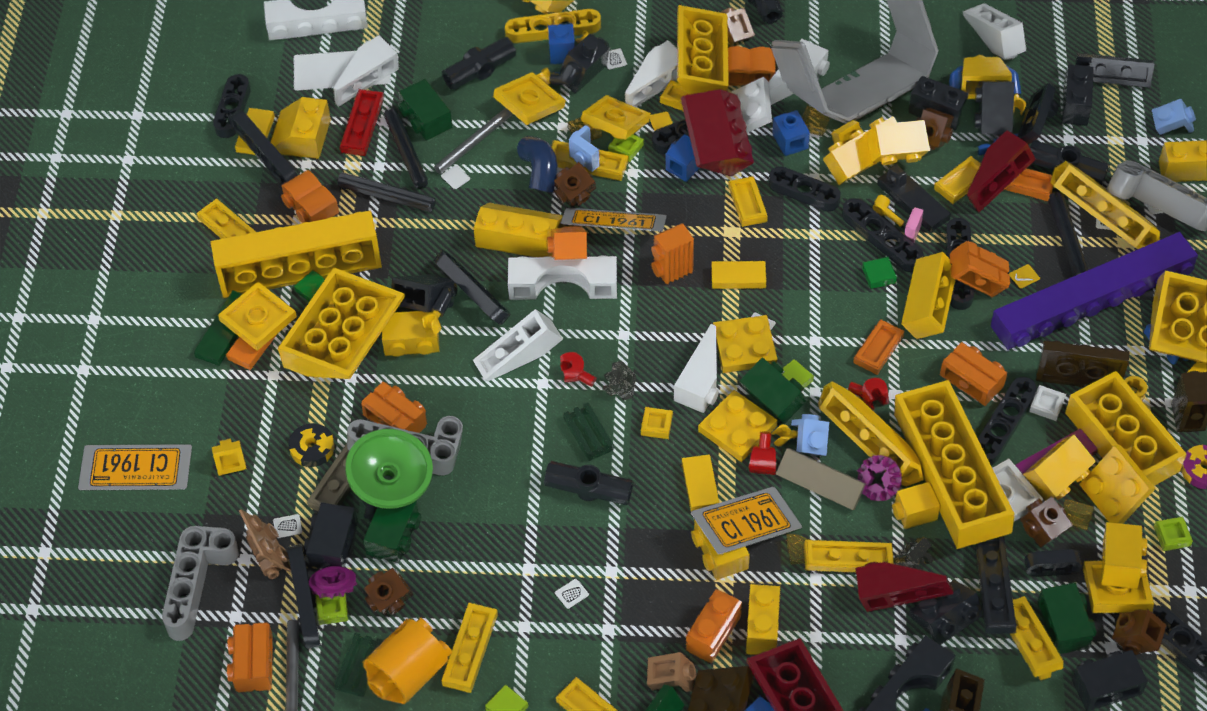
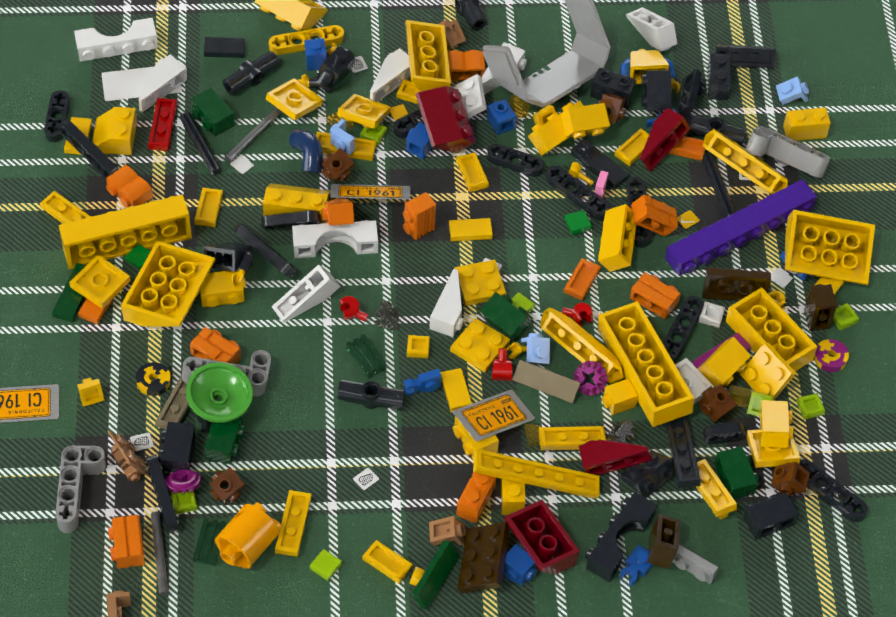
camera: 10 degrees left, 0 degrees up
(386, 192) = (188, 178): black axle -> none
(407, 229) = (208, 207): none -> yellow tile
(449, 30) = (224, 47): none -> black tile
(507, 249) = (290, 219): none -> black beam
(660, 471) = (425, 382): none -> blue plate
(795, 603) = (536, 474): none -> yellow tile
(1098, 523) = (755, 402): none -> lime tile
(1143, 359) = (780, 277): none -> white sticker

